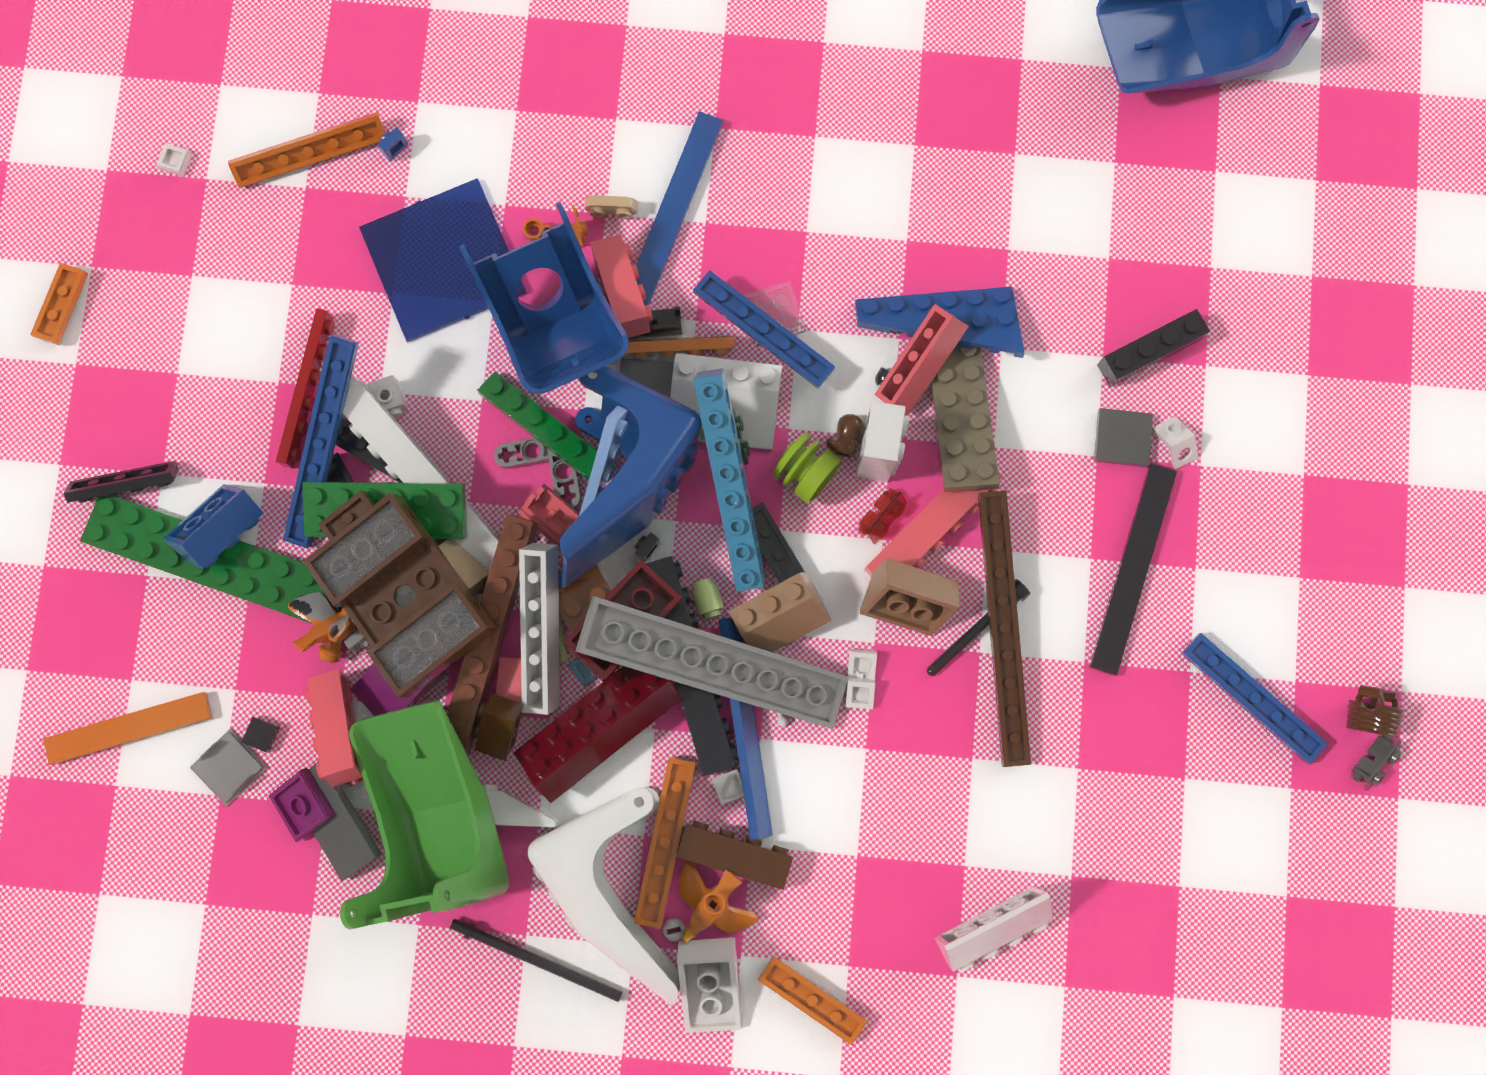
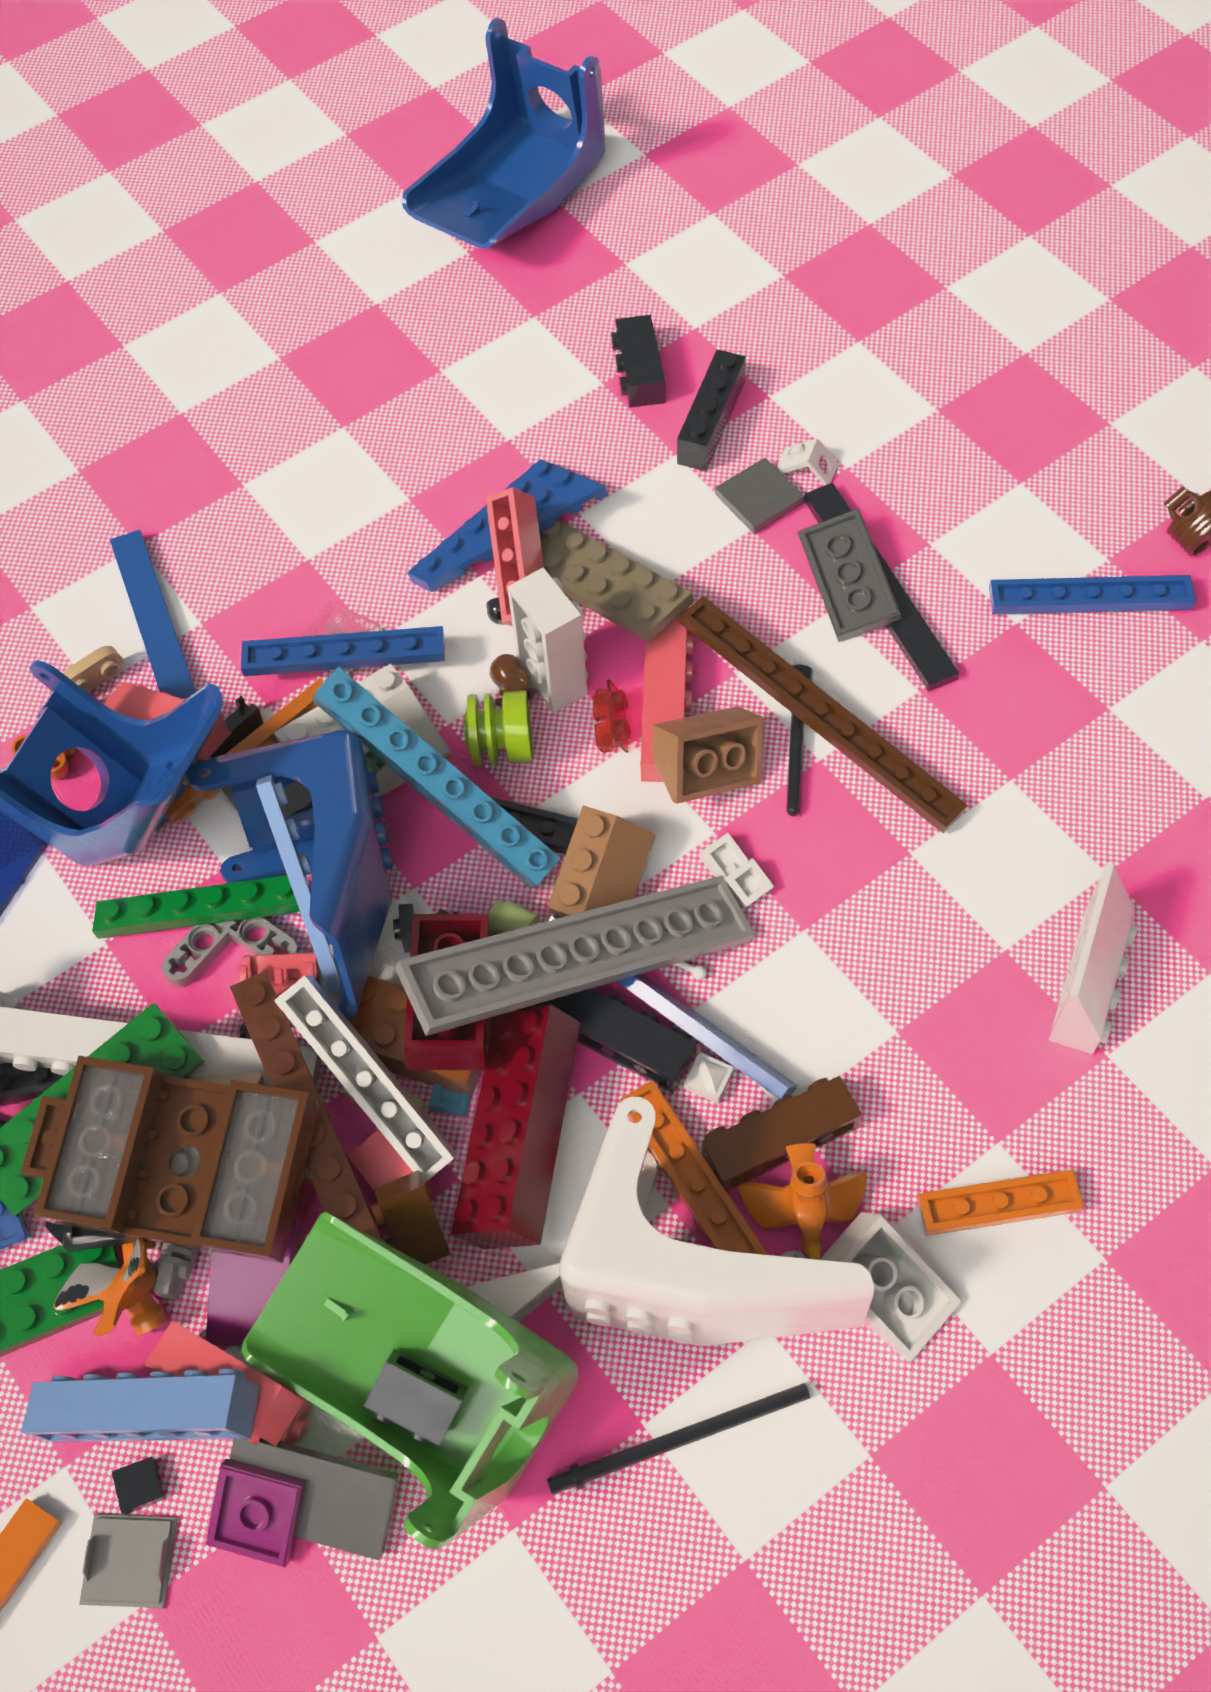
camera: 40 degrees left, 20 degrees down
(283, 708) = (142, 1407): none -> medium blue brick
(419, 825) = (415, 1398): none -> brick
(1118, 548) = (849, 575): none -> dark grey tile
(1144, 265) = (638, 361): none -> black brick

